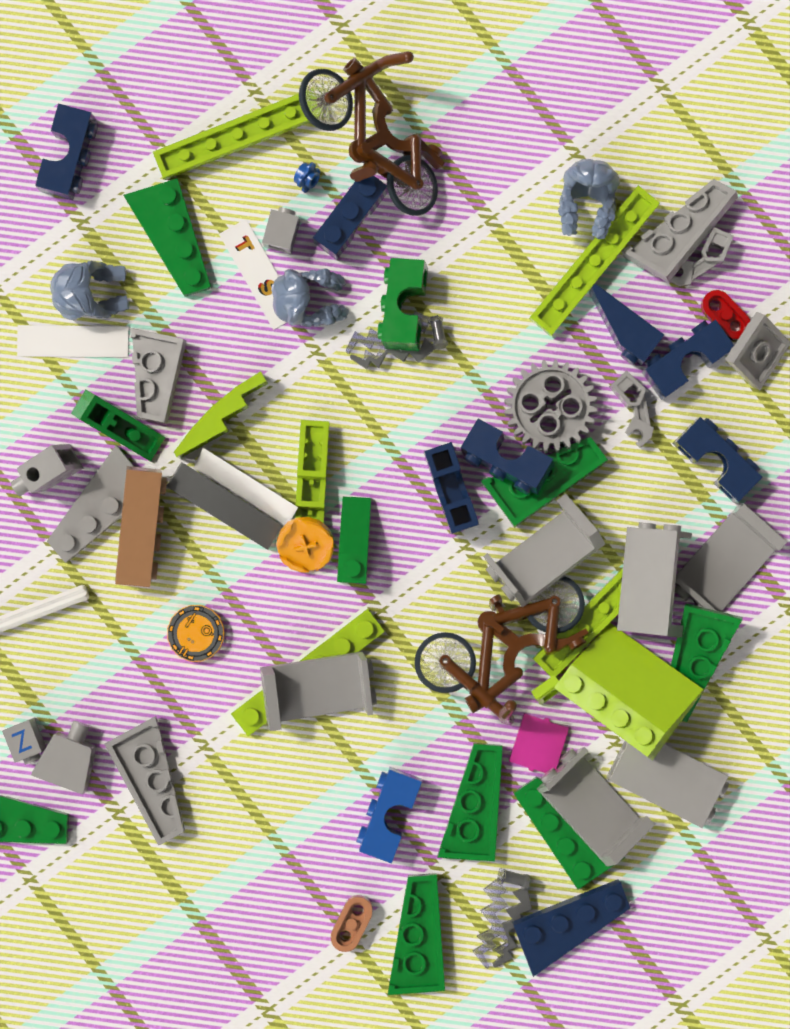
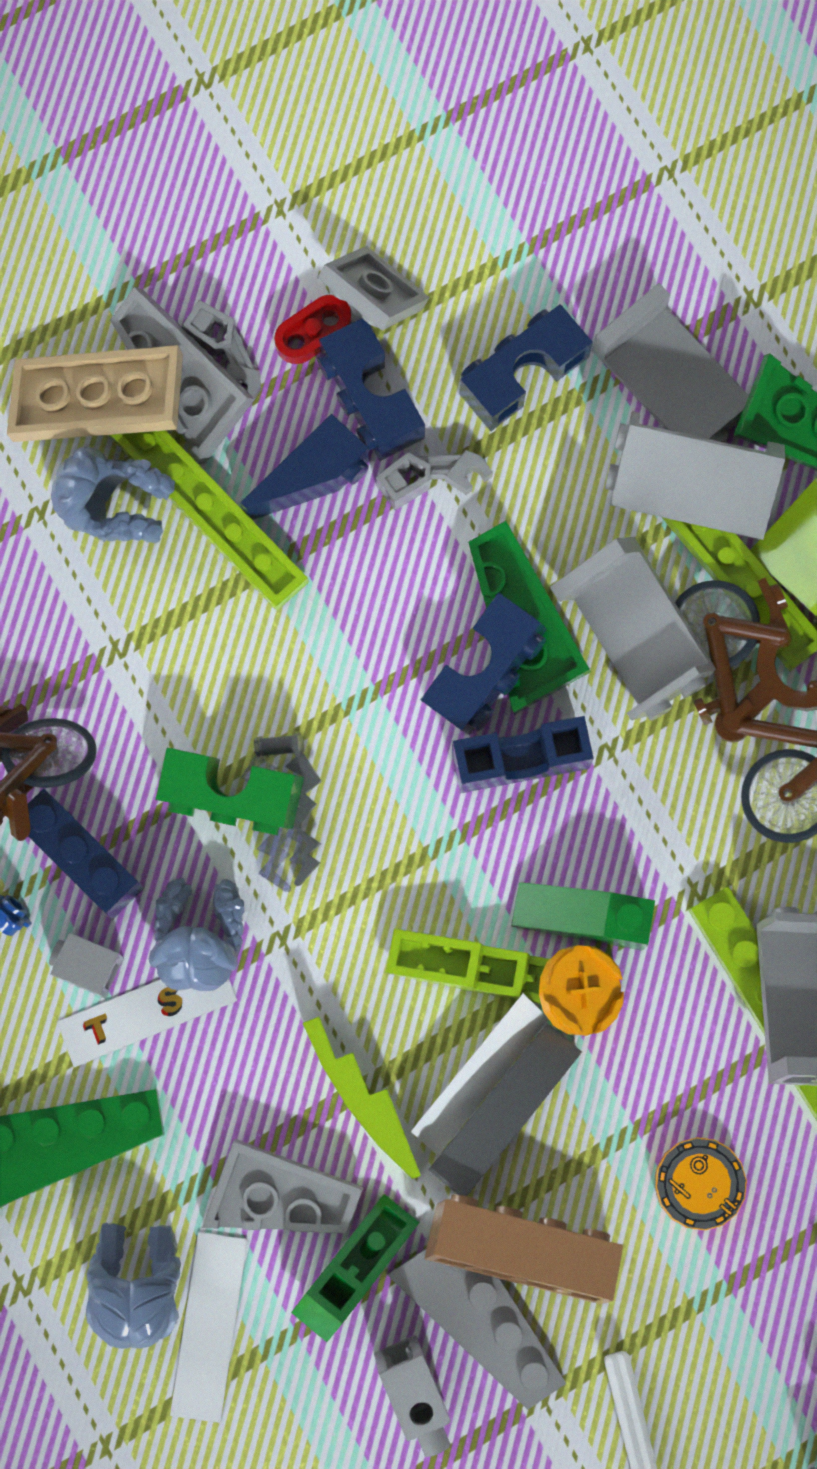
camera: 85 degrees left, 10 degrees down
(534, 387) = (447, 573): light grey gear -> none
(657, 177) = (95, 394): none -> tan plate

